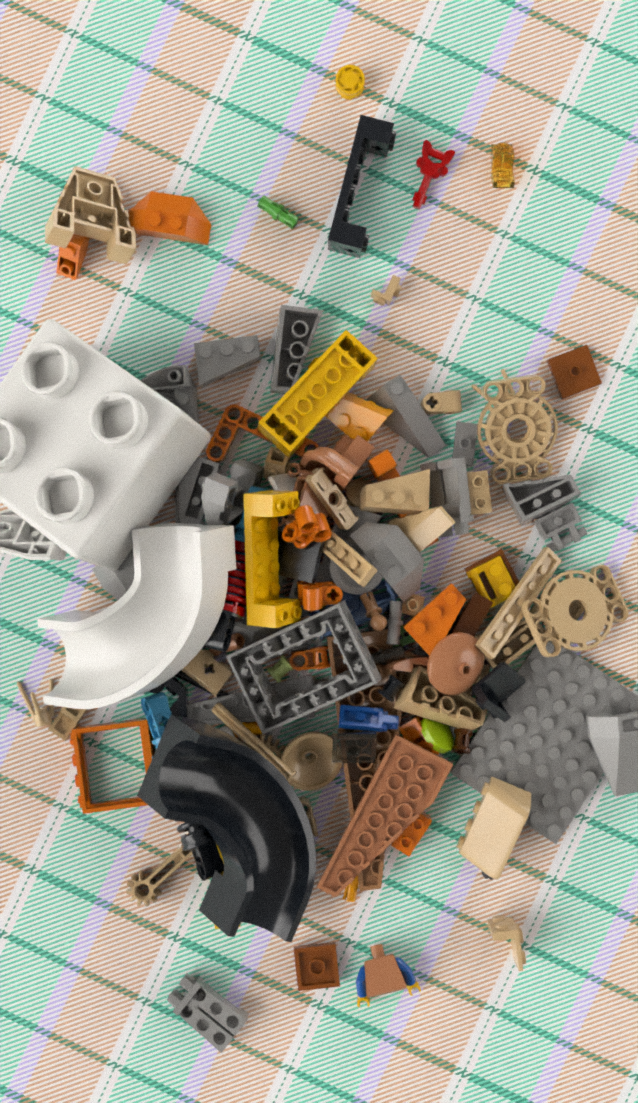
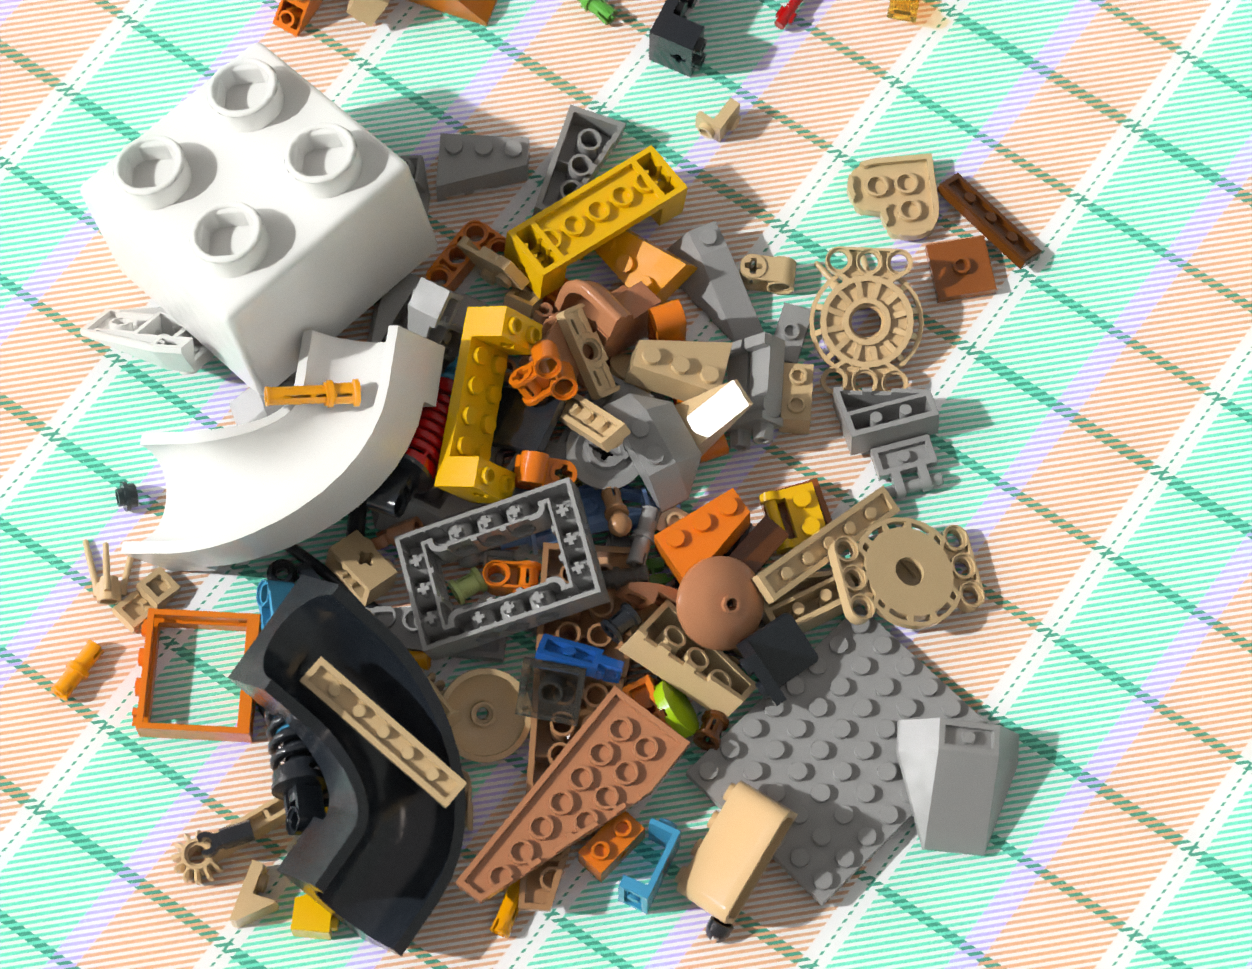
camera: 10 degrees right, 20 degrees down
(35, 775) = (77, 670): none -> light orange pin
(38, 648) = (127, 496): none -> black plate
(159, 573) = (328, 394): none -> light orange pin
(161, 879) = (227, 838): none -> black bar
(185, 912) = (249, 904): none -> tan slope
(248, 808) = (383, 732): none -> tan plate
(252, 440) = (493, 267): none -> tan wing
(439, 864) = (639, 894): none -> dark azure panel
(522, 322) = (899, 192): none -> tan plate
(588, 332) = (989, 220): none -> reddish brown tile

